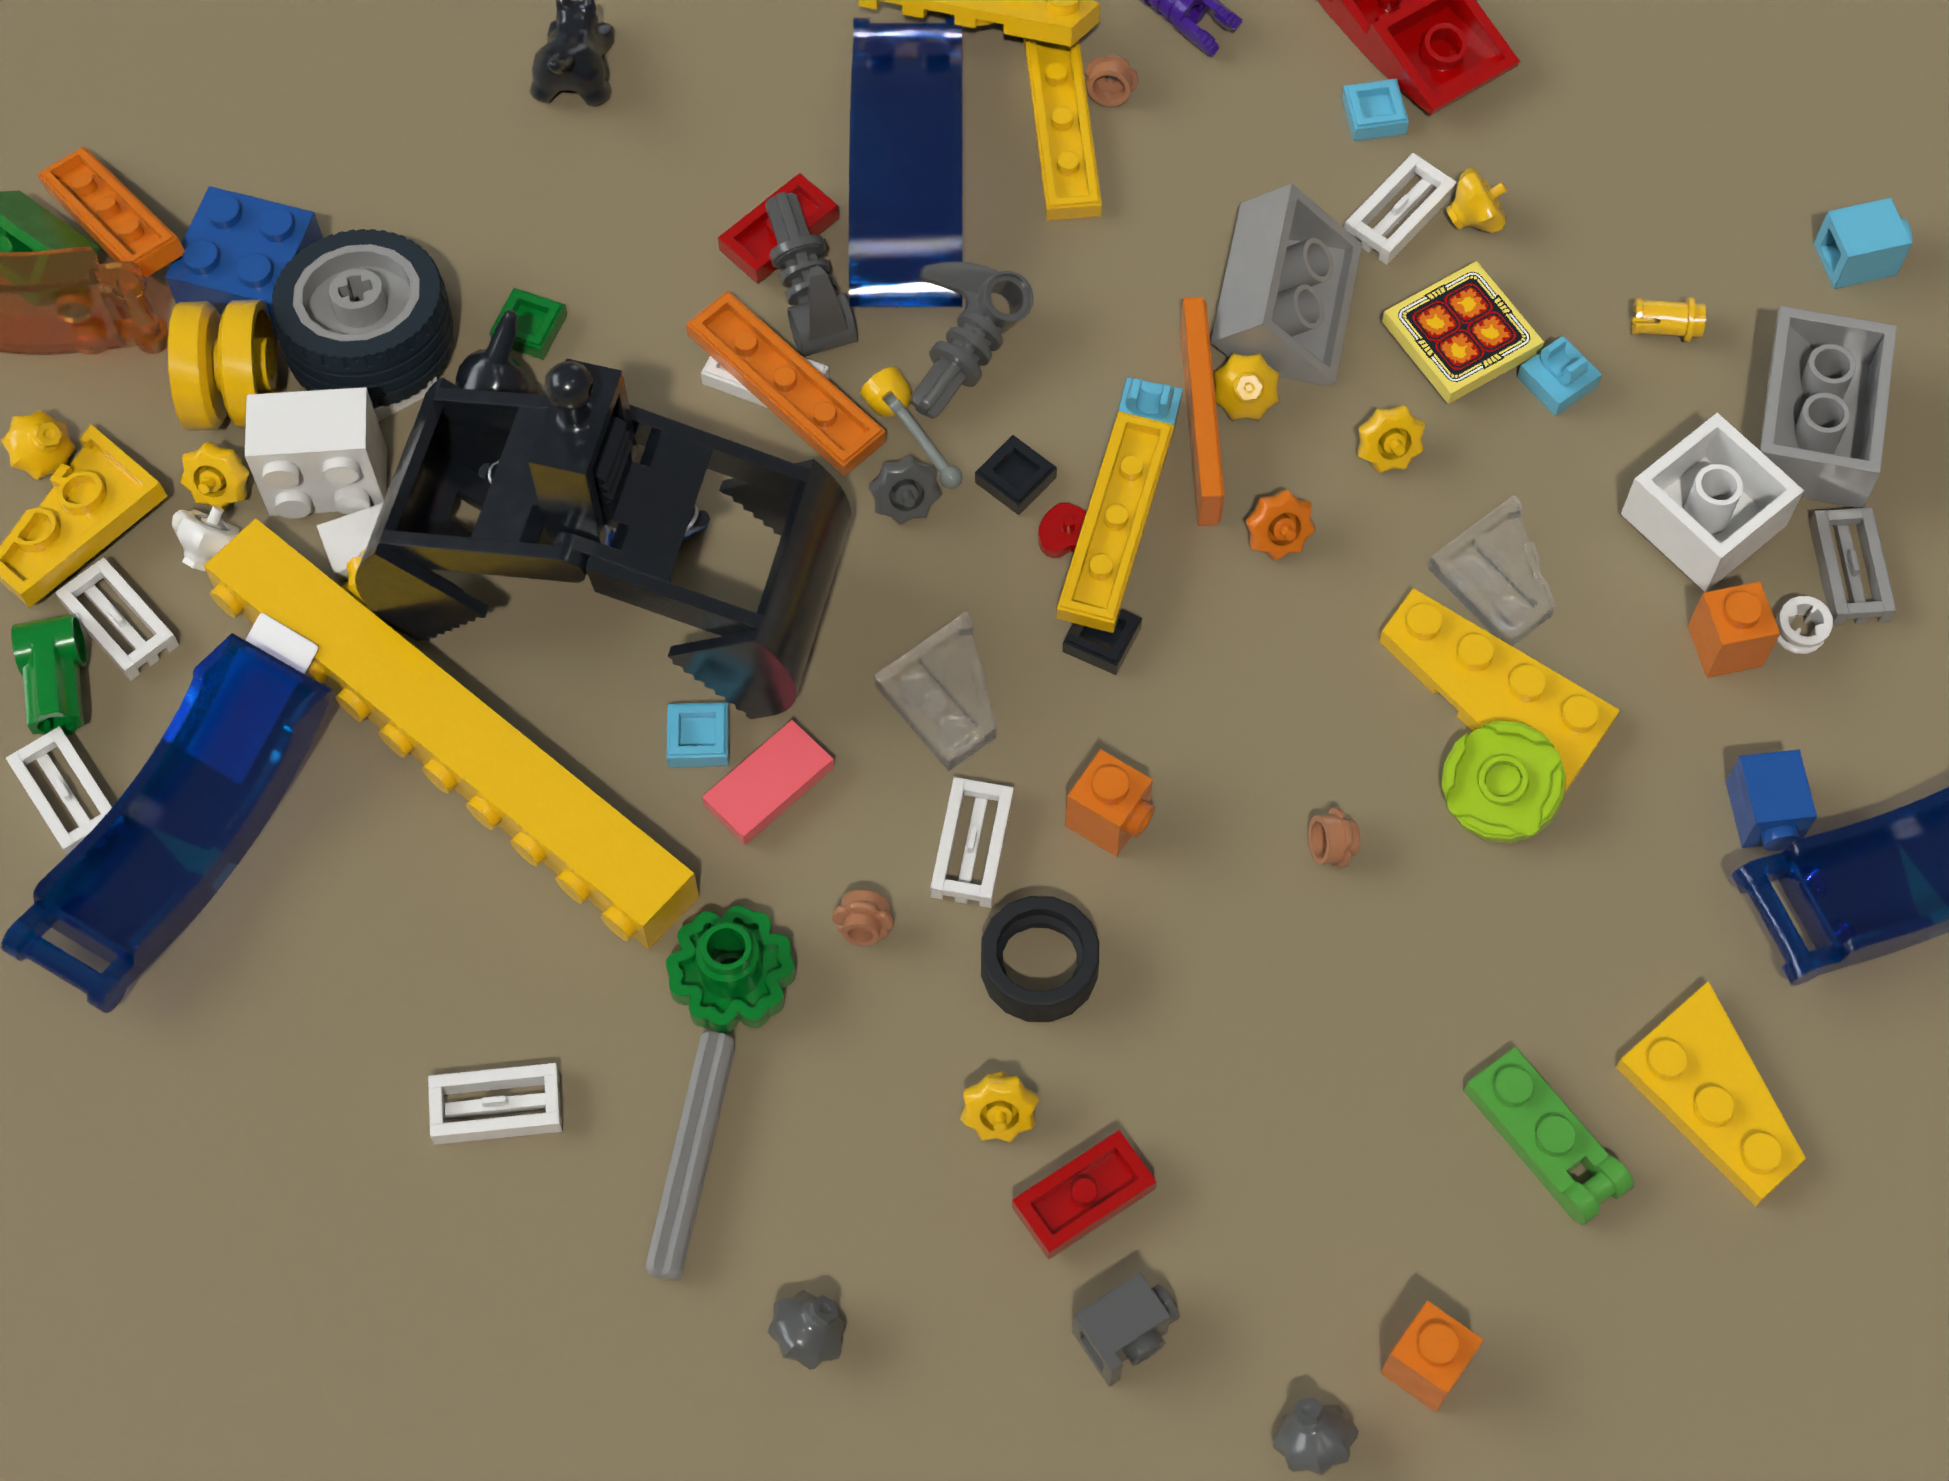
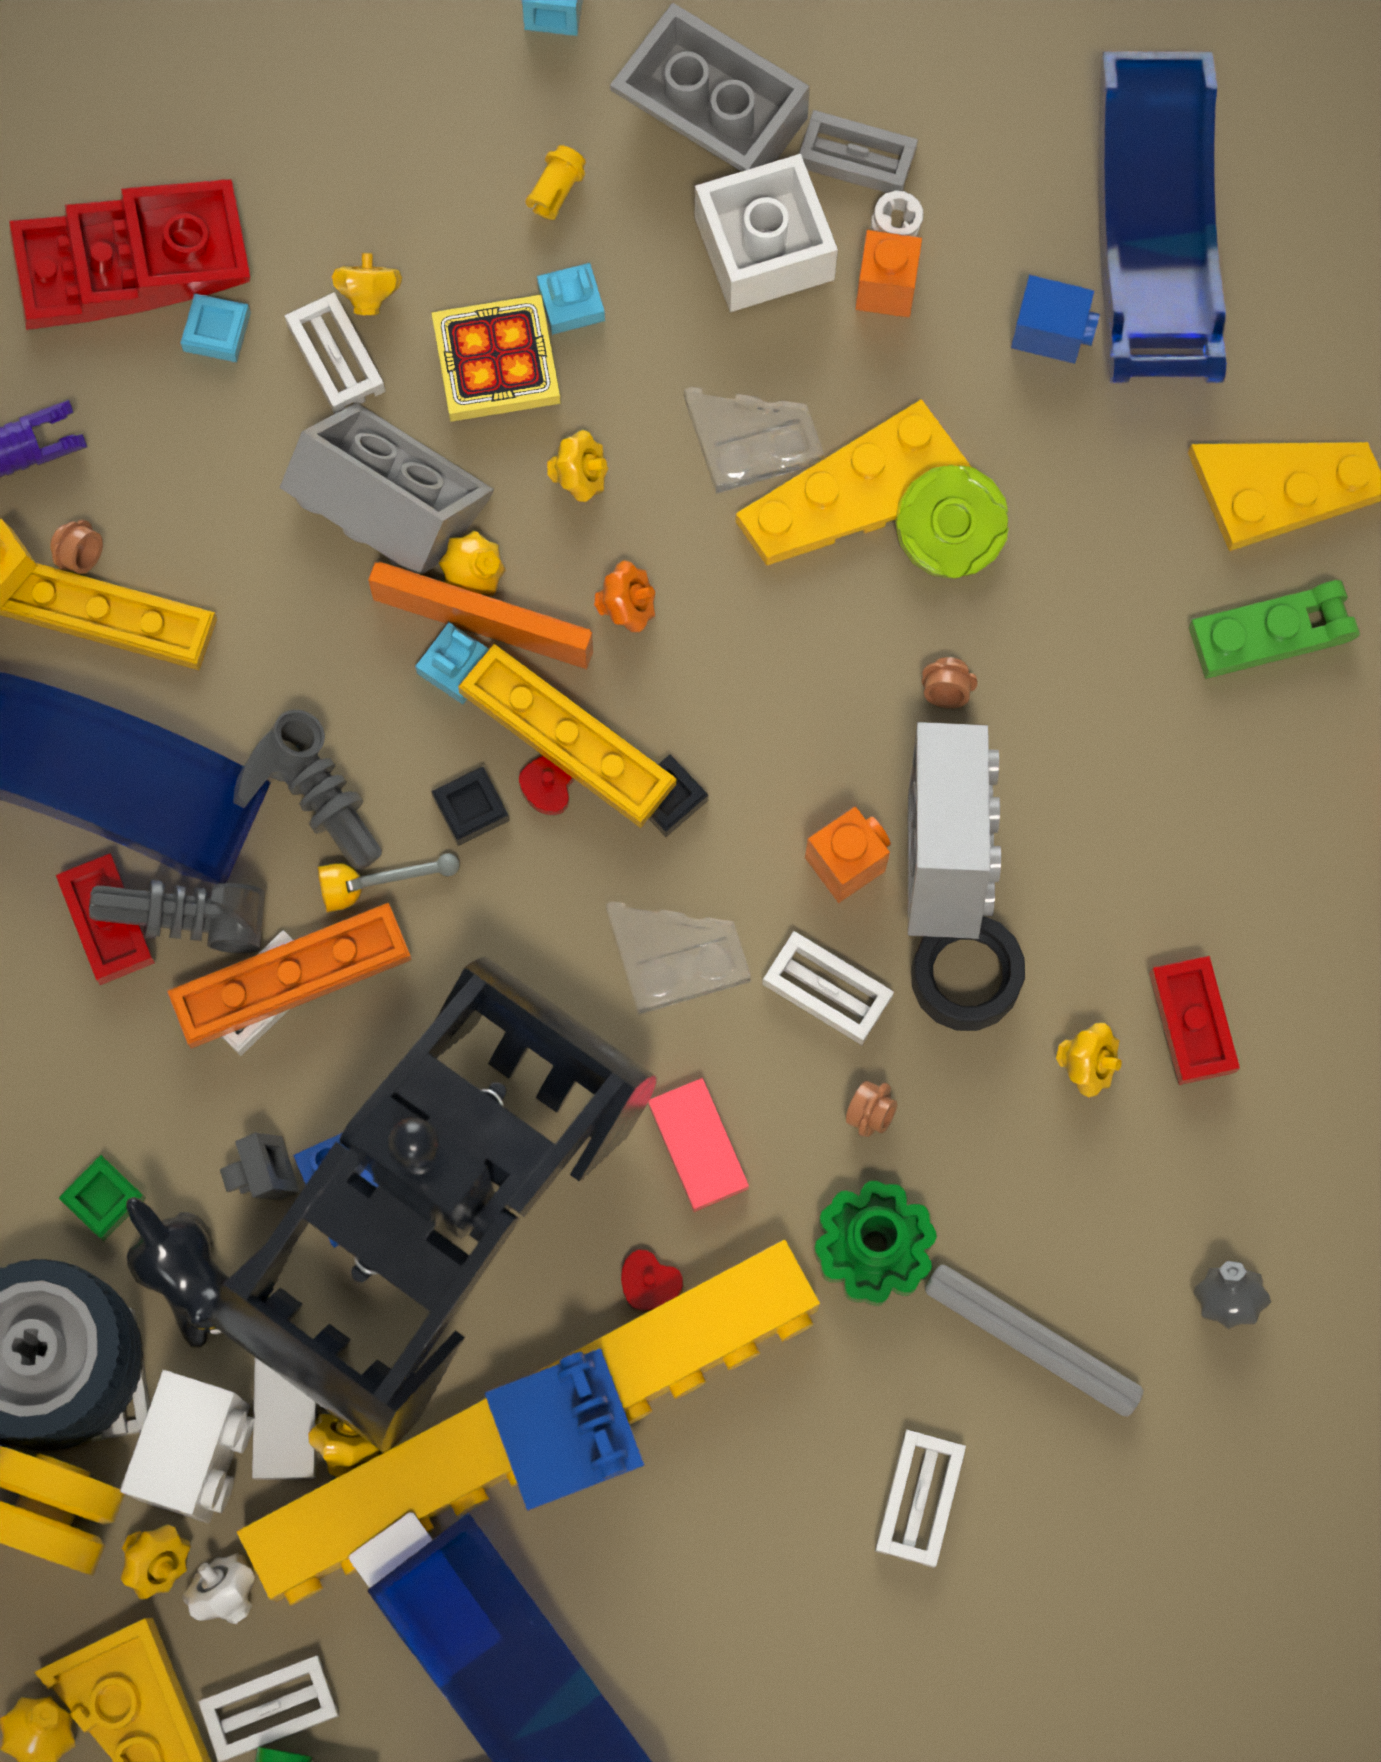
camera: 70 degrees left, 10 degrees up
(437, 741) = (564, 1428): none -> blue hinge
(622, 785) = (647, 1282): none -> red piece
(698, 734) = (623, 1191): medium azure tile -> none
(905, 489) = (450, 909): dark grey piece -> none
(1125, 1326) = (1323, 1032): dark grey brick -> none
(1162, 867) = (952, 830): none -> brick

